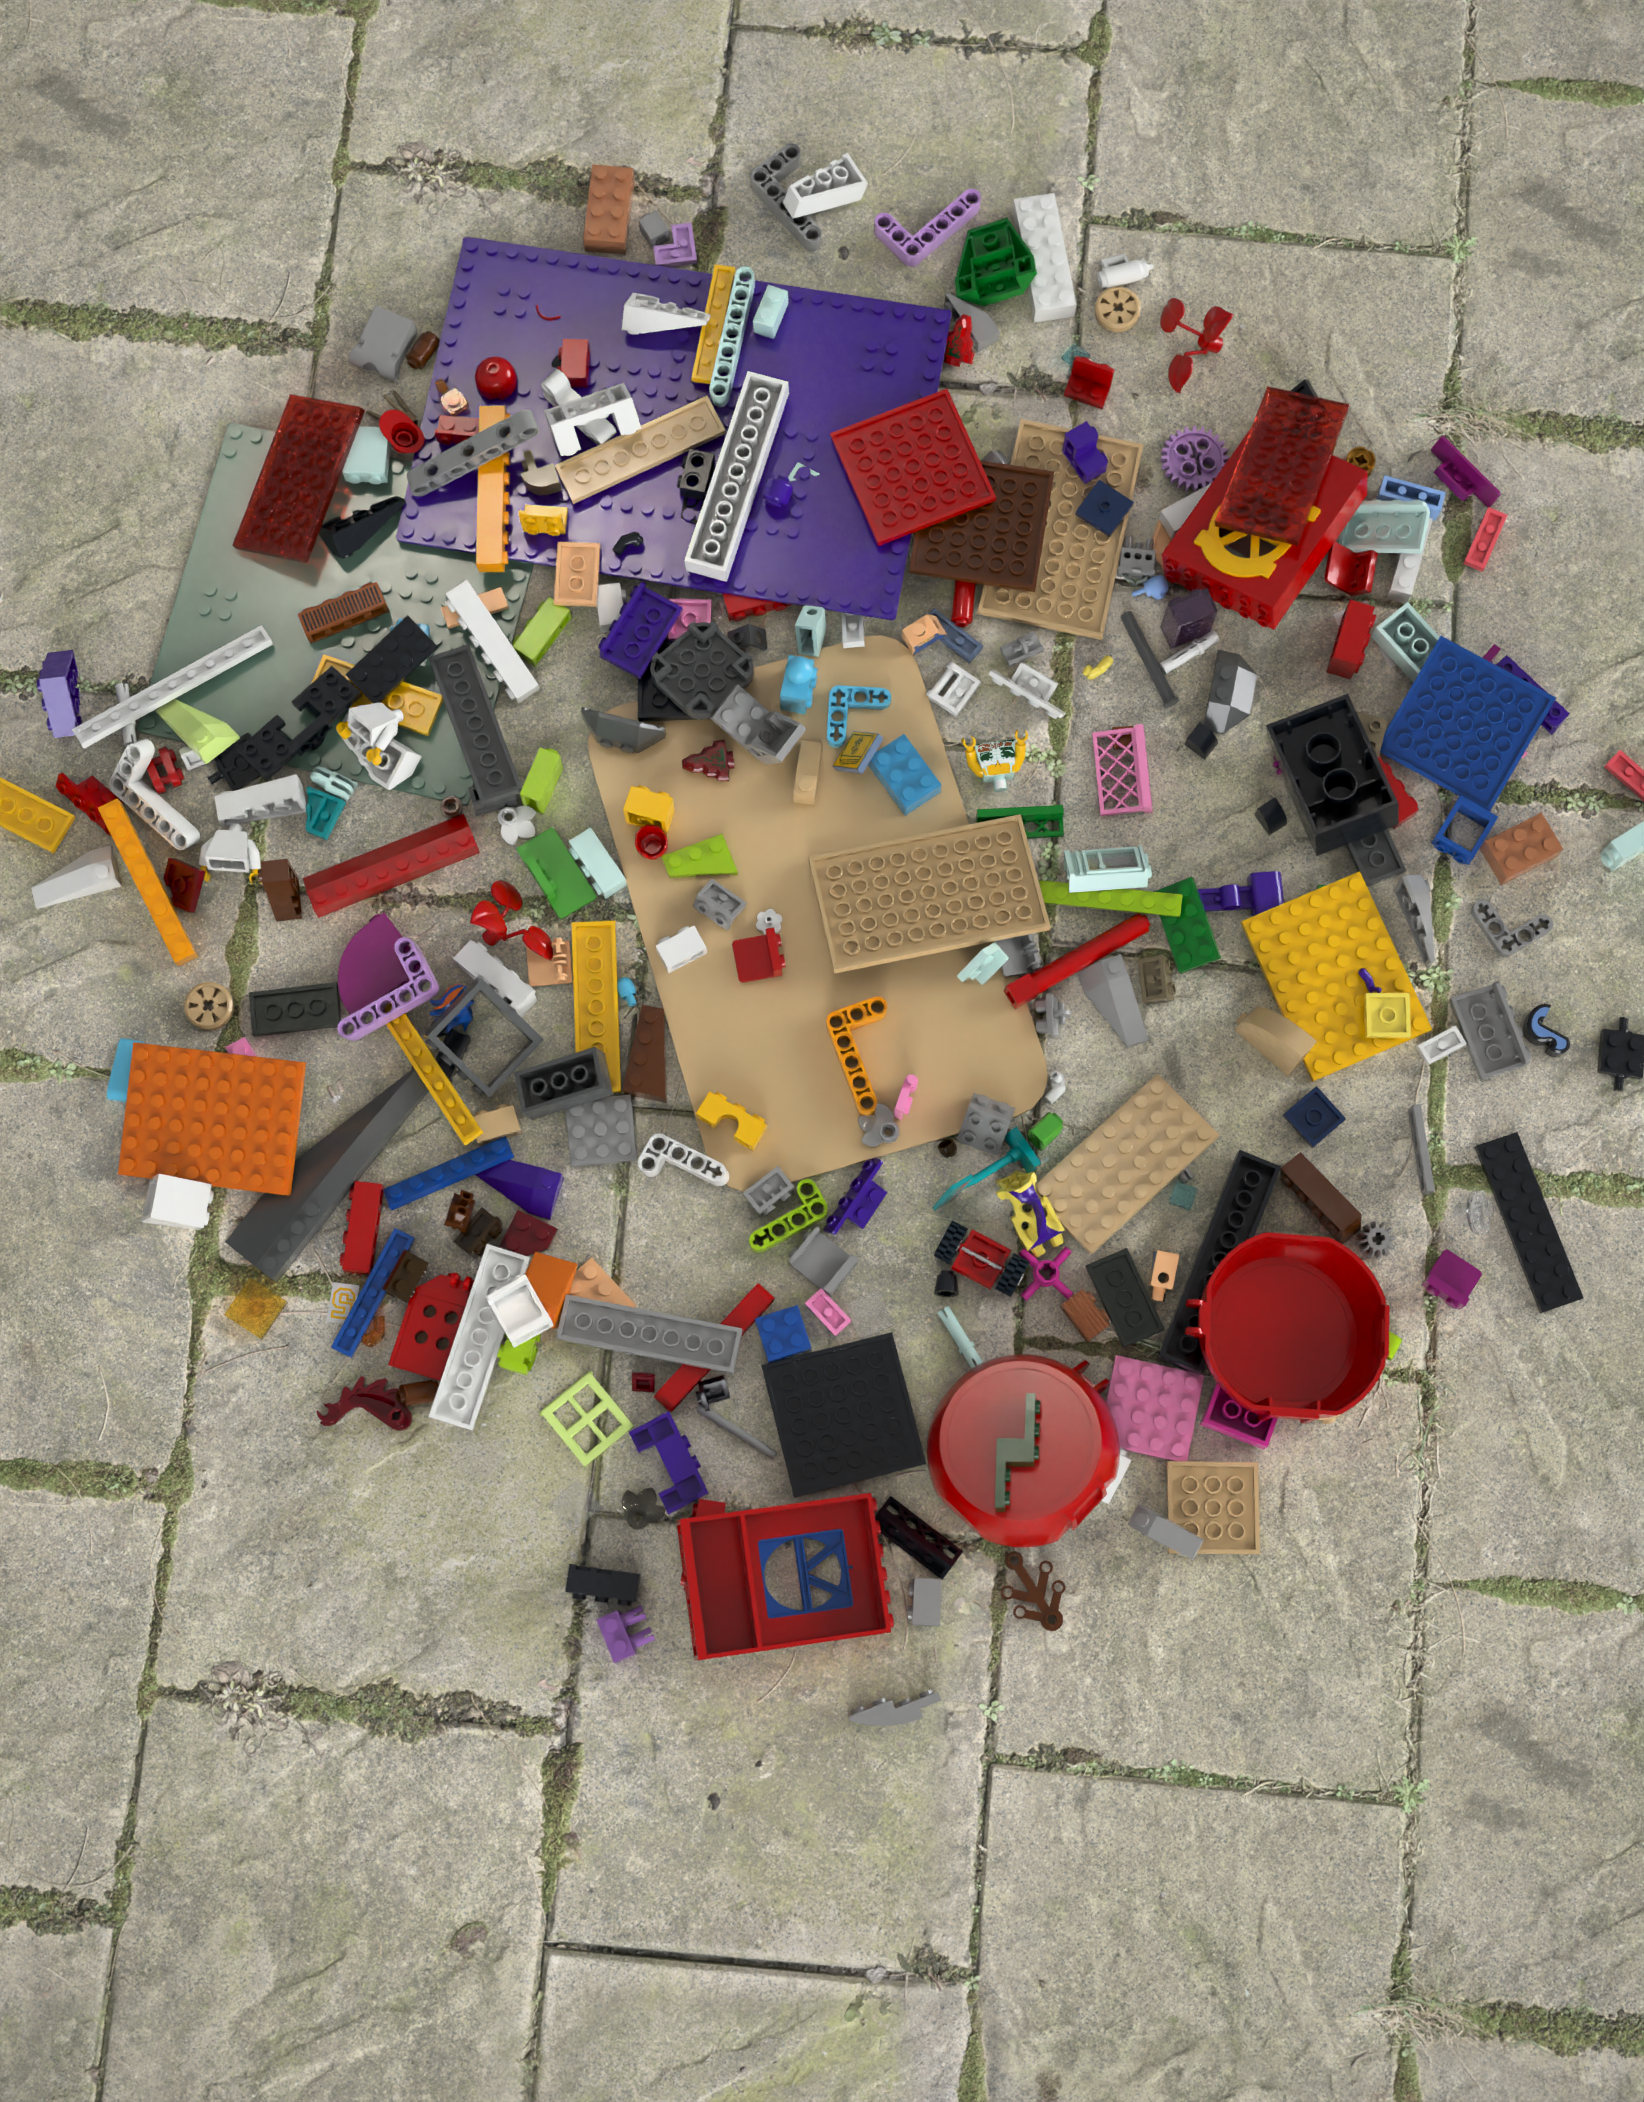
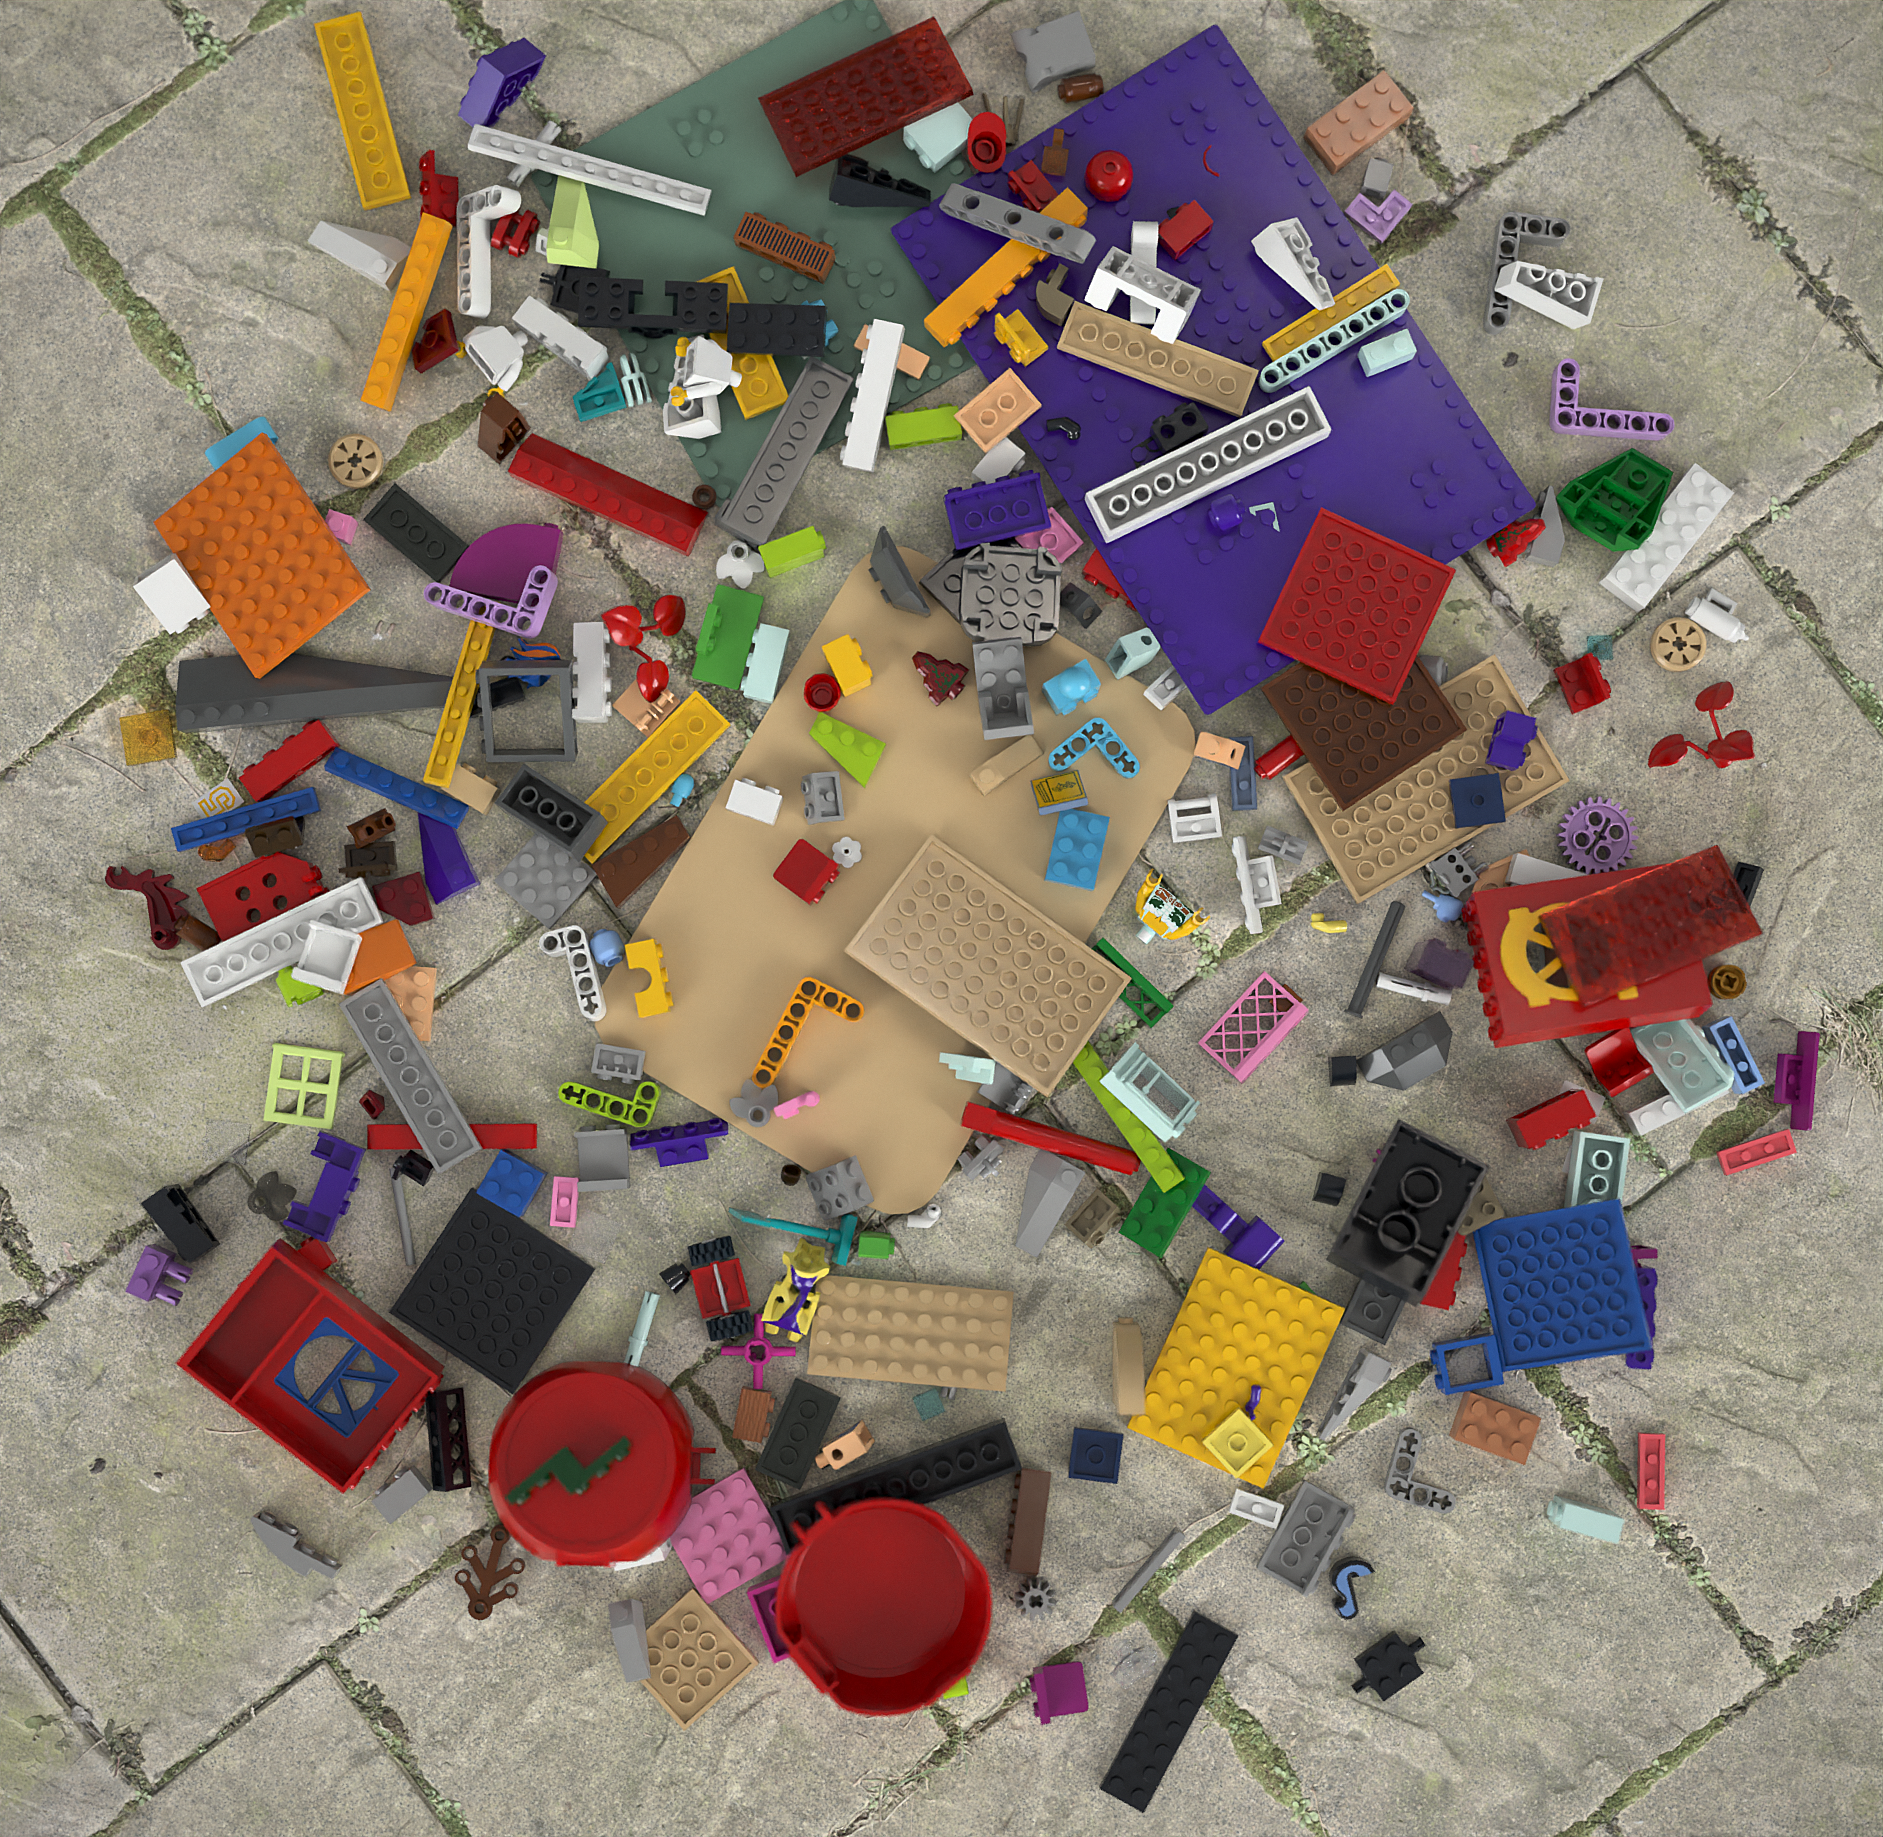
camera: 50 degrees right, 10 degrees up
(685, 1130) = (607, 947): none -> light blue head

